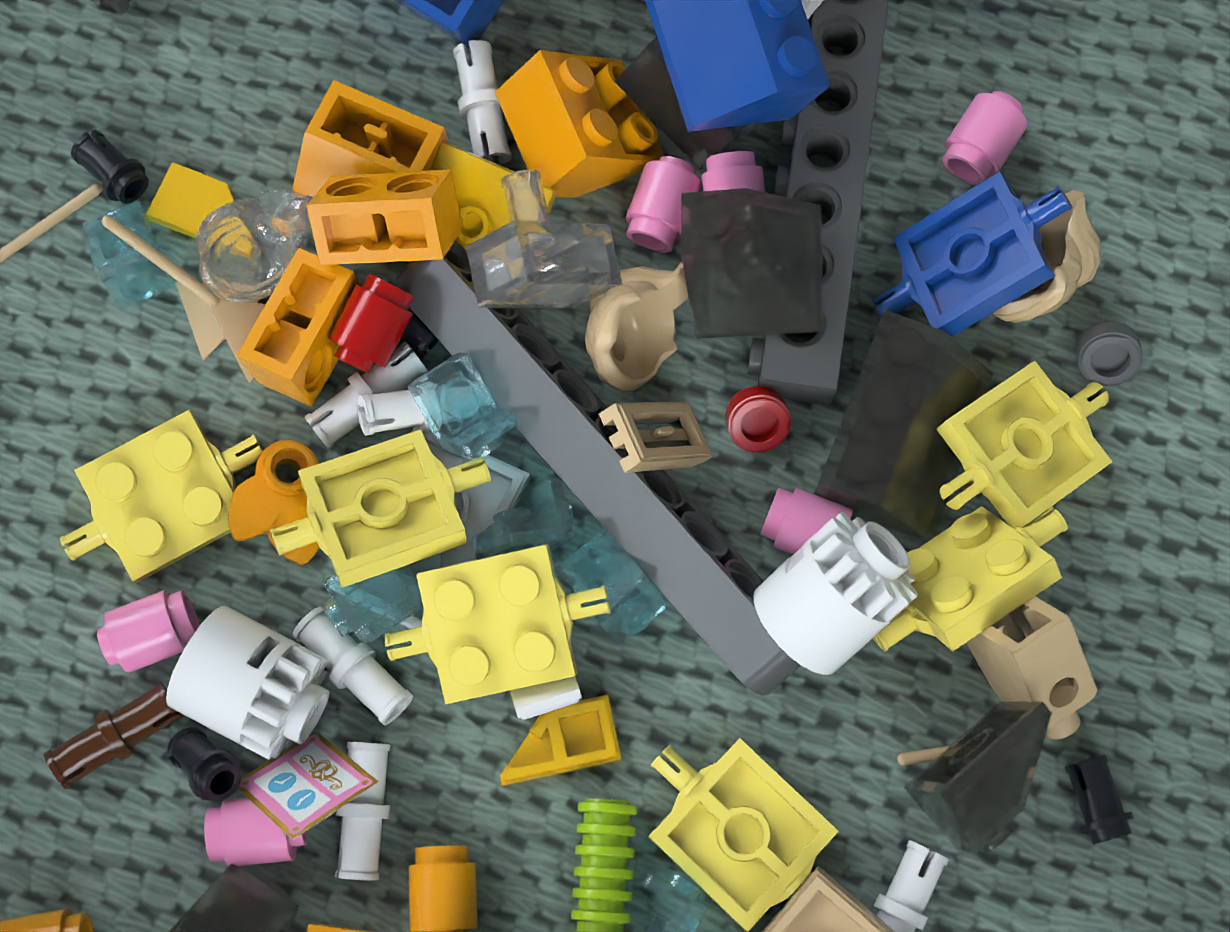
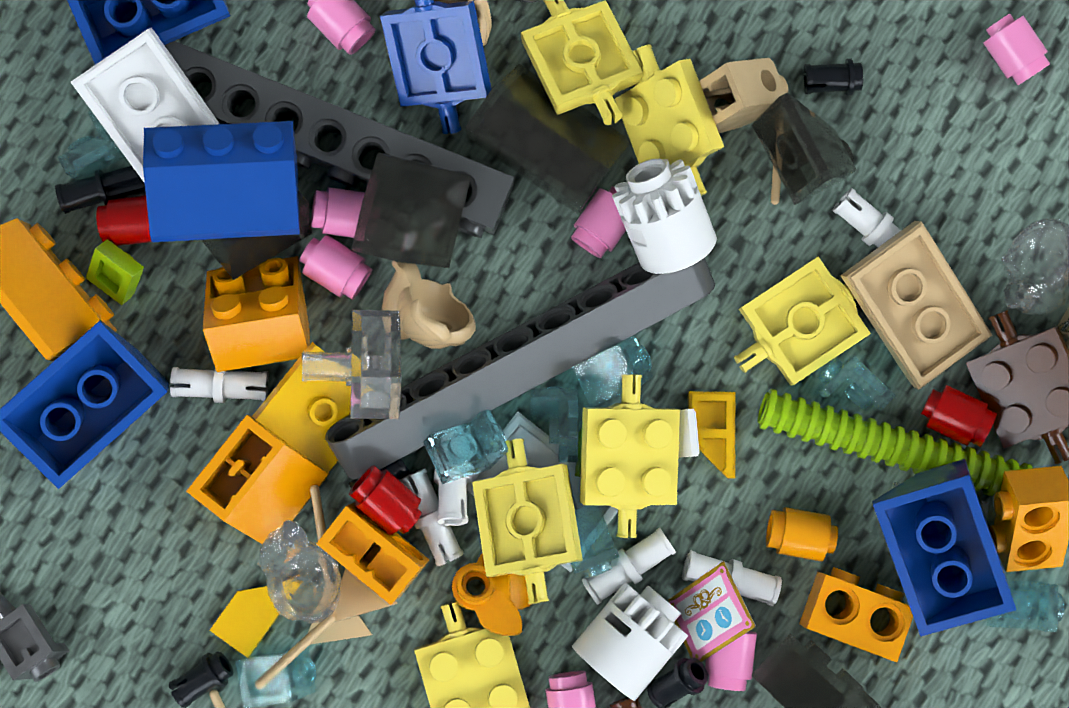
camera: 85 degrees left, 10 degrees up
(385, 217) = (313, 473): light orange brick -> none
(635, 441) = (520, 330): tan tile -> none
(757, 419) = (516, 238): red tile -> none

